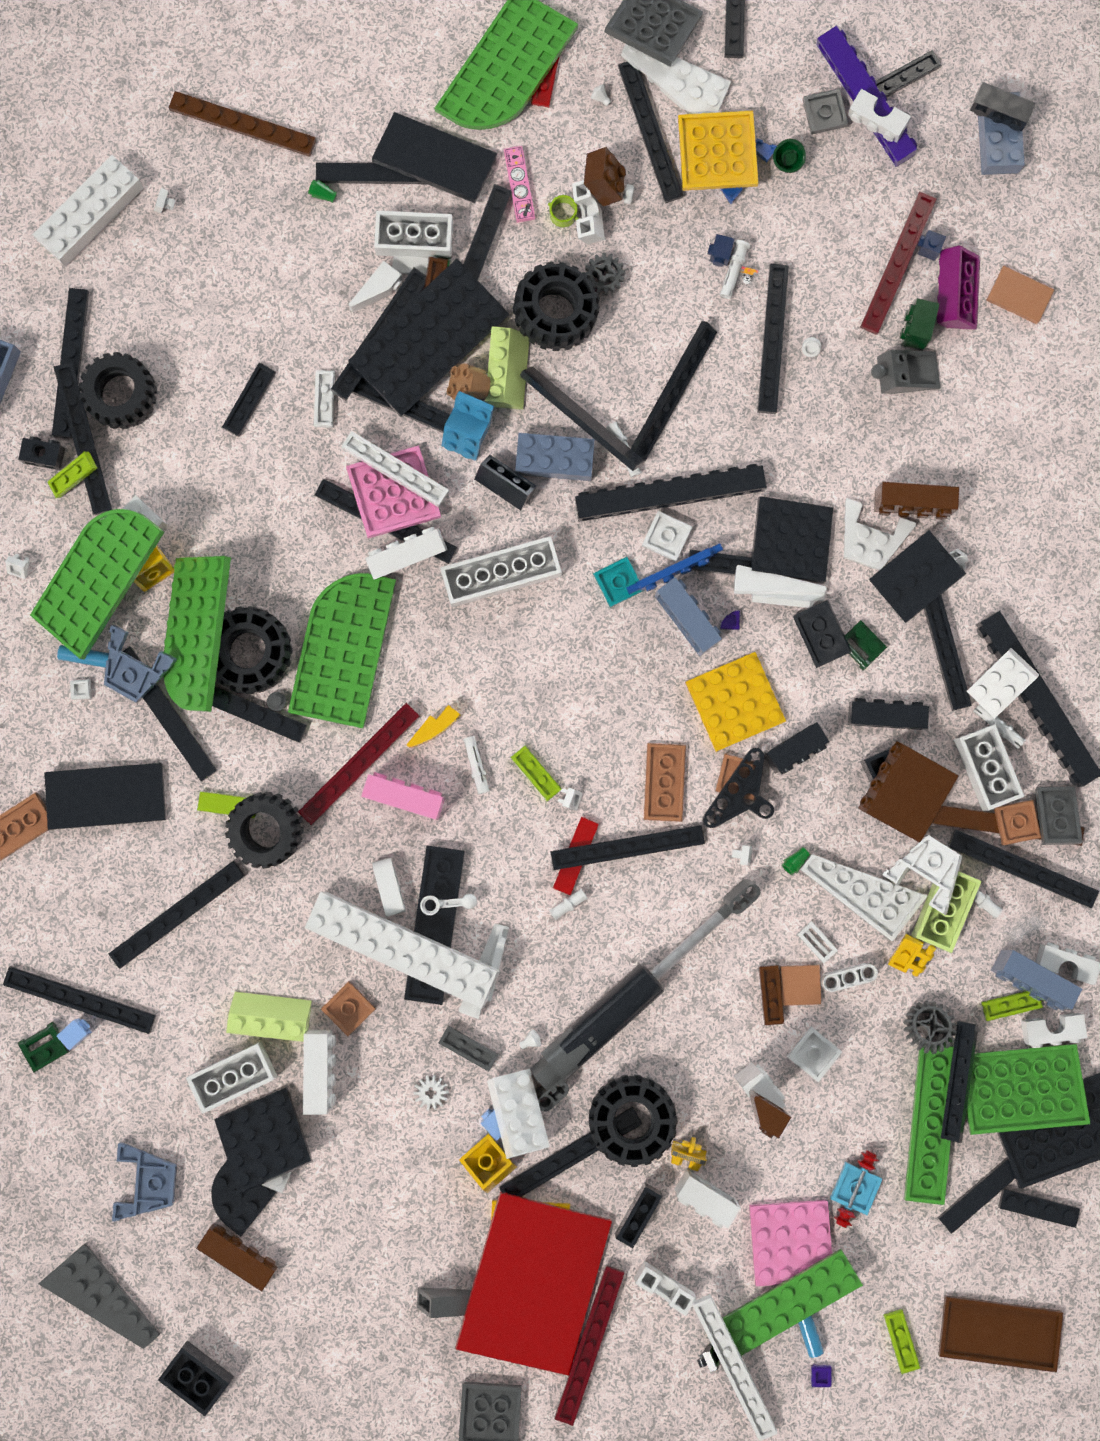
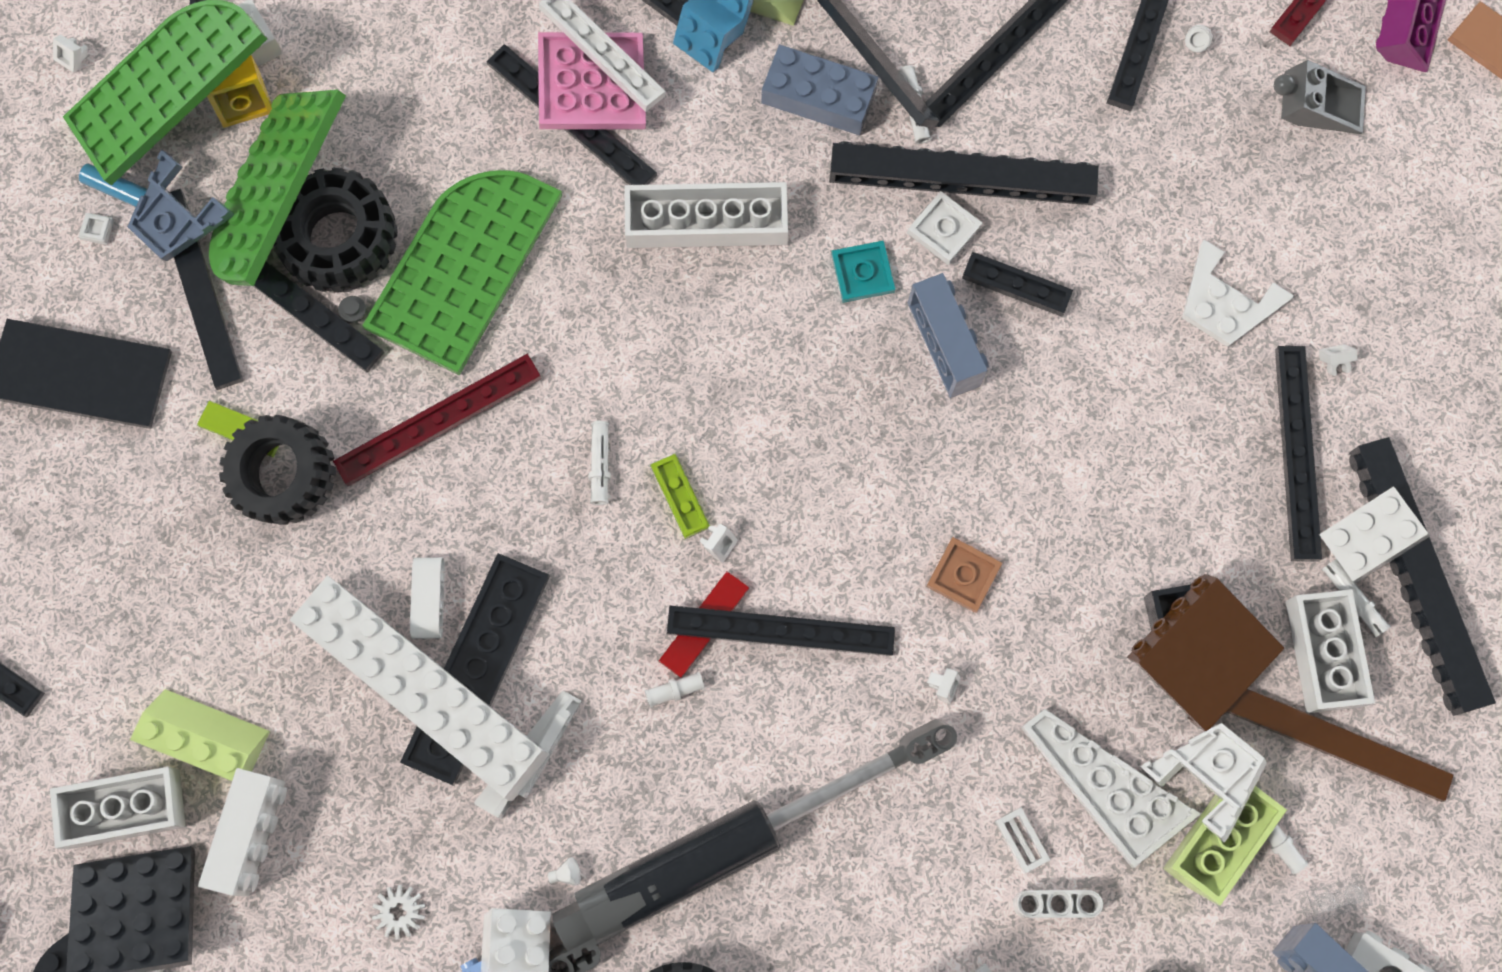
camera: 15 degrees right, 10 degrees down
(176, 914) = (120, 560): black tile -> none
(348, 1008) = (317, 756): nougat tile -> none
(403, 797) = (484, 475): bright pink brick -> none
(405, 554) = (584, 156): white brick -> none
(434, 727) = (555, 397): yellow slope -> none
(468, 1048) = (471, 860): dark grey plate -> none
(469, 901) = (532, 645): white piece -> none
(505, 482) = (744, 104): black brick -> none
(664, 782) = (857, 555): nougat tile -> none
(683, 567) = (952, 268): blue plate -> none
(731, 621) = (1005, 362): dark purple tile -> none
(735, 701) = (985, 470): yellow plate -> none
(746, 785) = (972, 588): black beam -> none
(771, 995) = (936, 900): reddish brown plate -> none
(777, 588) = (1080, 331): white wedge -> none
(791, 539) = (1115, 274): black plate -> none
(795, 861) = (1017, 714): green cone -> none
(796, 749) = (1057, 552): black brick -> none
(800, 985) = (983, 897): nougat tile -> none
(822, 634) = (1129, 407): black plate -> none
(867, 642) = (1188, 434): dark green plate -> none
(888, 715) = (1199, 542): black brick -> none
(905, 955) = (1152, 888): yellow plate -> none
(916, 500) = (1301, 261): reddish brown brick -> none
(917, 576) = (1281, 363): black plate -> none
(919, 324) = (1352, 39): dark green brick -> none
(1017, 822) = (1356, 741): nougat tile -> none
(1023, 869) = (1354, 815): black plate -> none
(1058, 815) = (1419, 747): dark grey plate -> none

